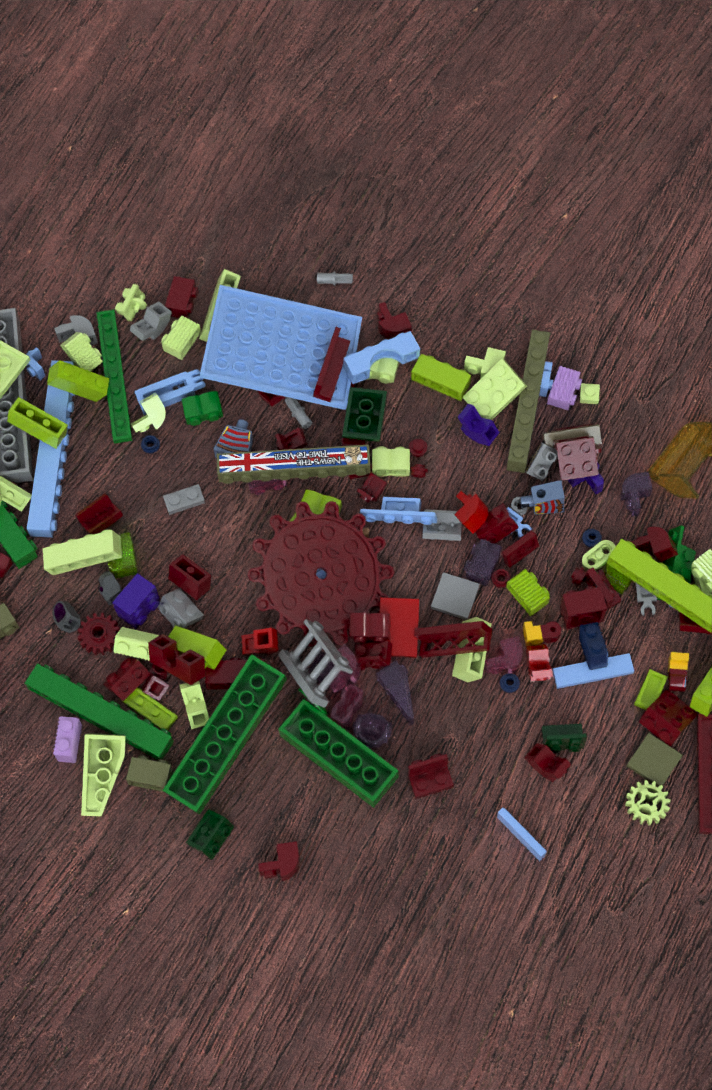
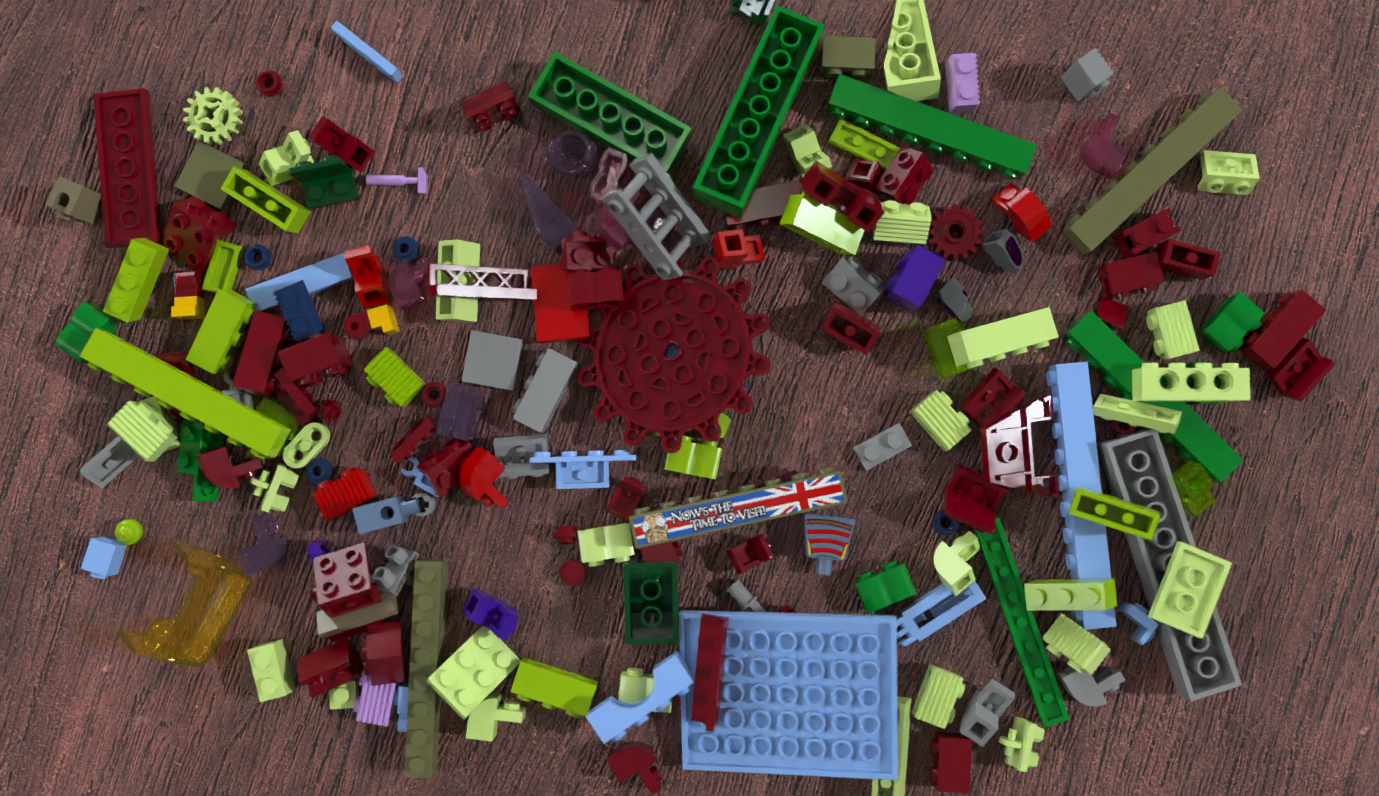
camera: 170 degrees right, 20 degrees up
(46, 641) = (1025, 210): none -> red brick
(95, 481) = (1009, 450): none -> wing
(130, 451) = (972, 500): none -> dark red bracket
(139, 508) = (941, 420): none -> yellowish green brick
(418, 568) = (544, 390): none -> light grey brick
(508, 735) = (400, 180): none -> lavender piece
(554, 409) = (383, 653): none -> dark red brick
(573, 518) = (344, 494): none -> red brick
(592, 759) = (278, 160): none -> yellowish green brick
(595, 407) = (329, 667): none -> dark red brick
(606, 819) = (262, 80): none -> dark red plate
(610, 729) = (265, 200): none -> lime brick
(623, 618) = (260, 355): none -> dark red brick
(623, 688) = (252, 252): none -> dark blue plate
(627, 531) = (272, 499): none -> yellowish green hips
(637, 412) = (271, 670): none -> yellowish green brick
(652, 640) = (222, 331): none -> lime brick

